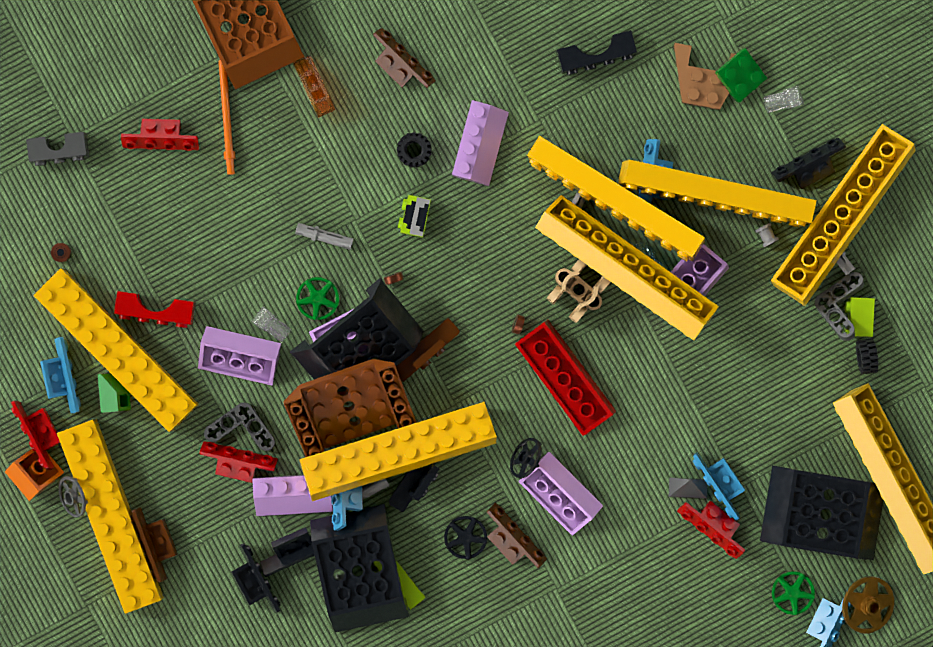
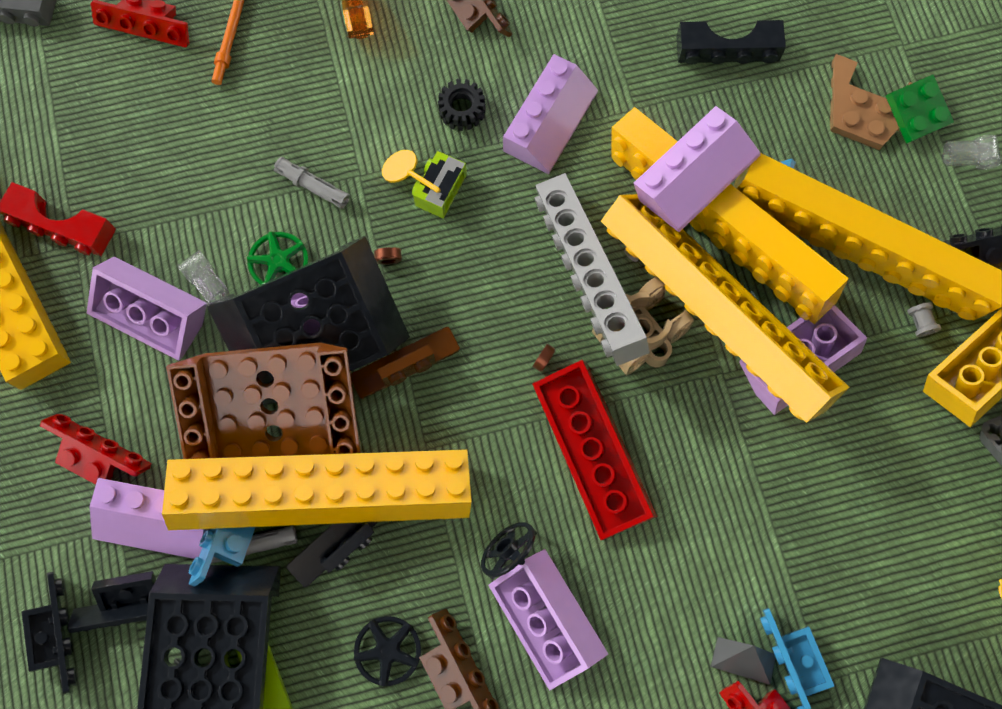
camera: 15 degrees right, 15 degrees down
(238, 420) = (115, 396): dark grey beam -> none
(384, 209) = (401, 166): none -> yellow piece
(573, 313) = (591, 269): none -> light grey brick
(591, 183) = (696, 169): none -> lavender slope

